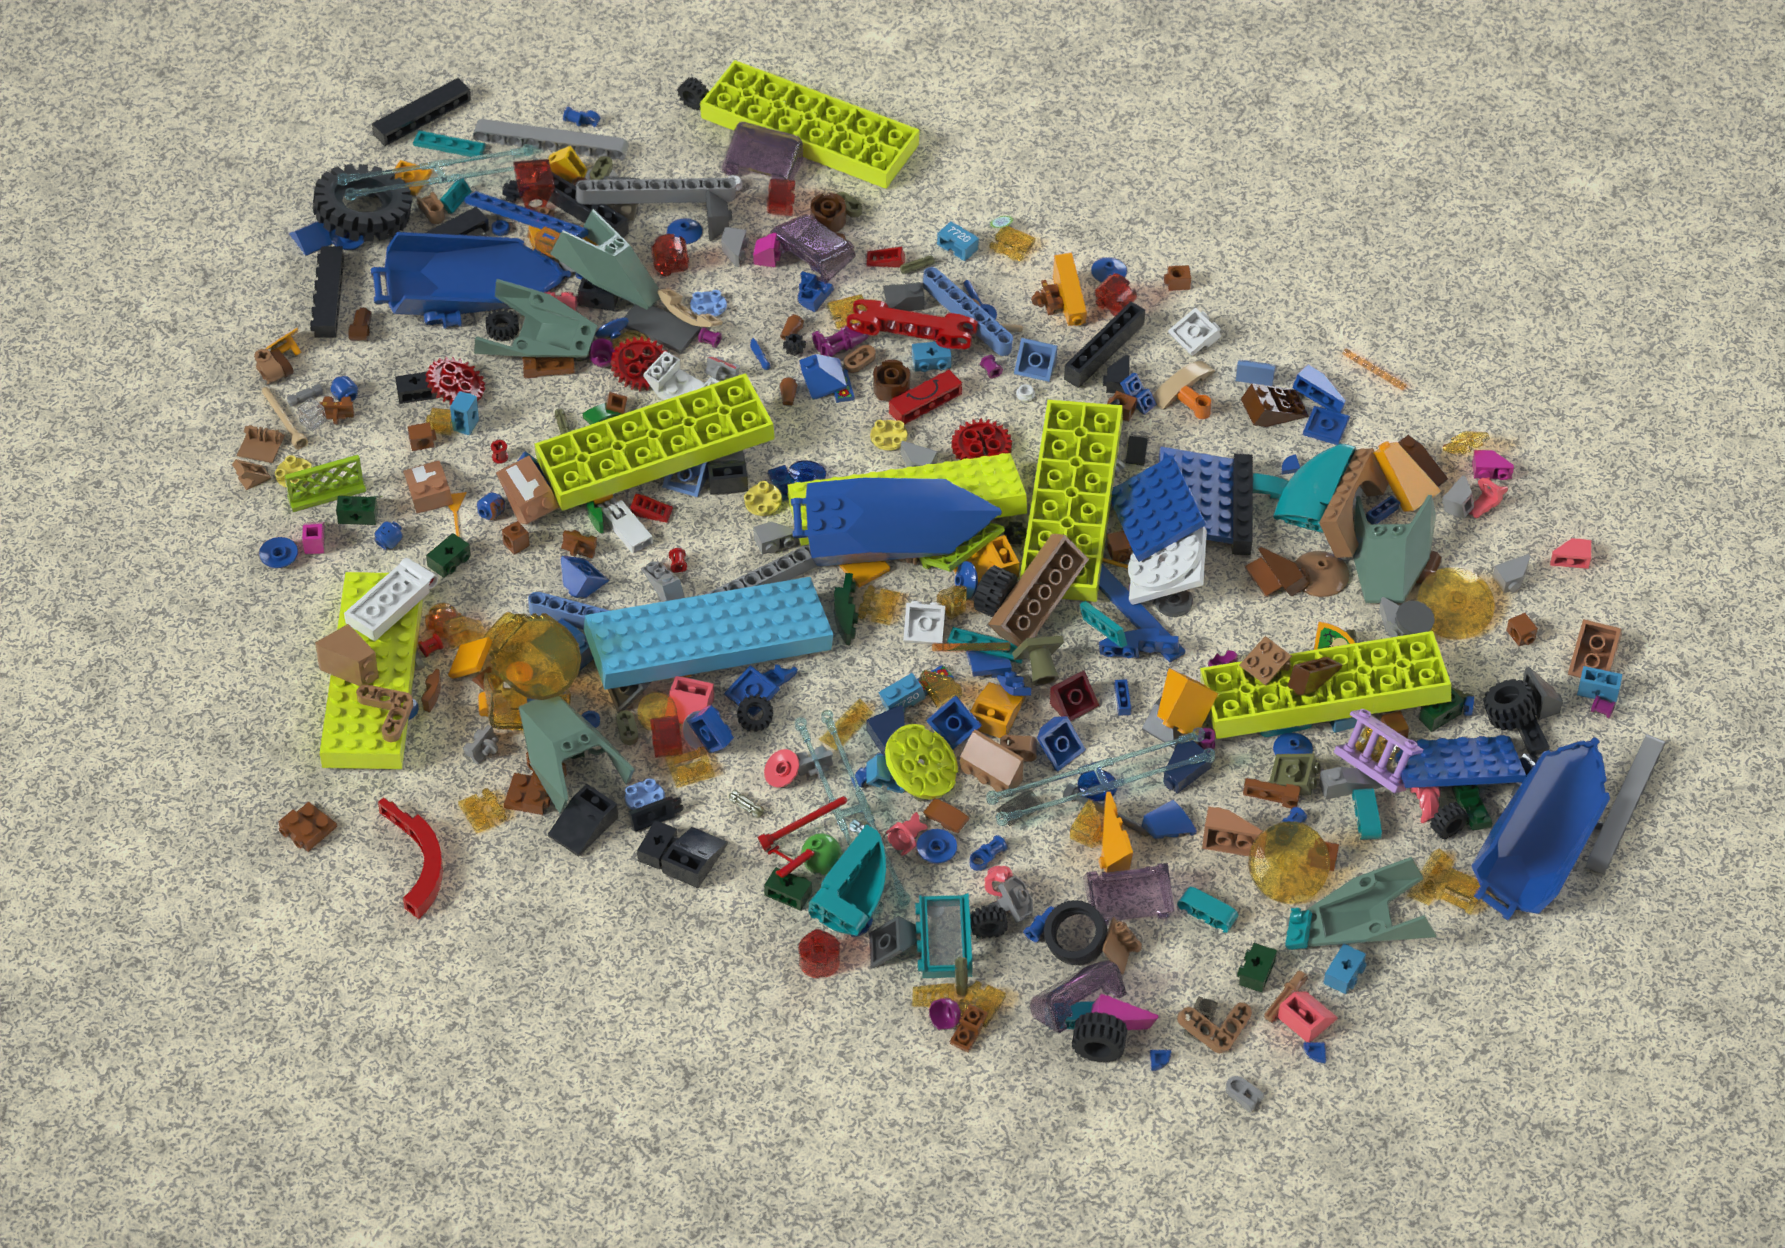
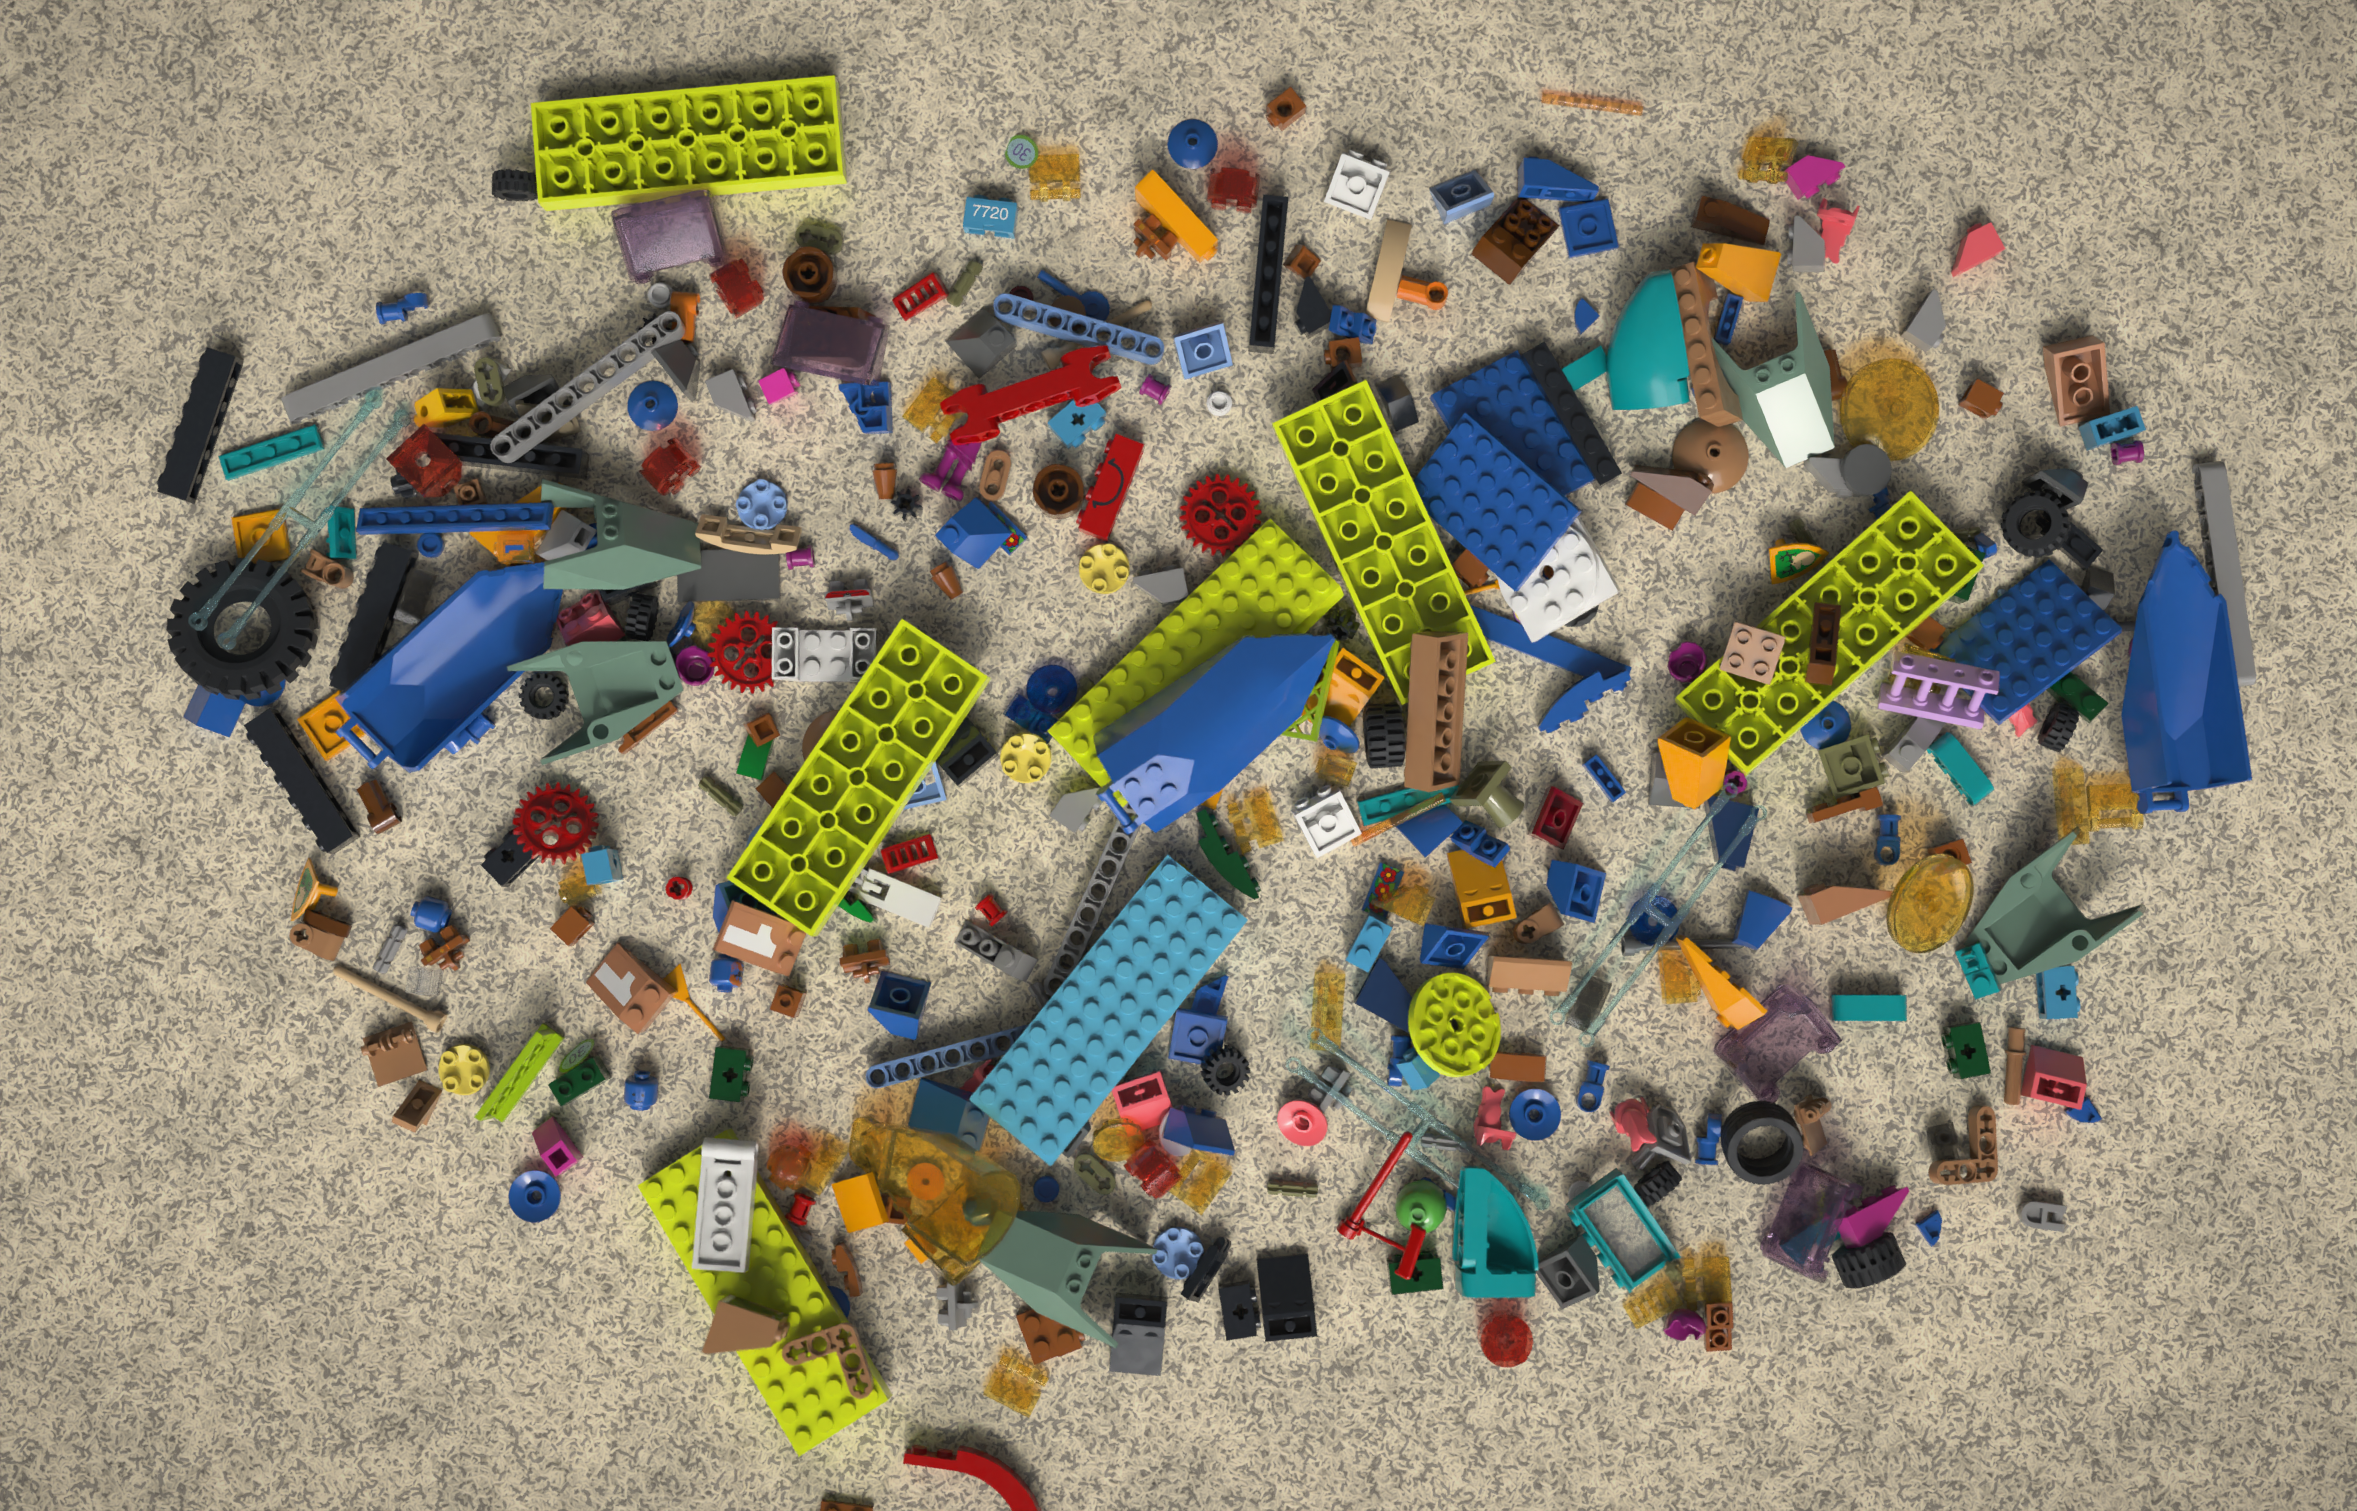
camera: 30 degrees left, 35 degrees up
(362, 280) = (322, 723): none -> light orange tile
(595, 310) = (641, 617): none -> black tyre
(744, 195) = (685, 306): none -> orange piece
(1103, 624) = (1532, 704): teal tile -> none
(1135, 353) = (1302, 261): none -> dark orange slope

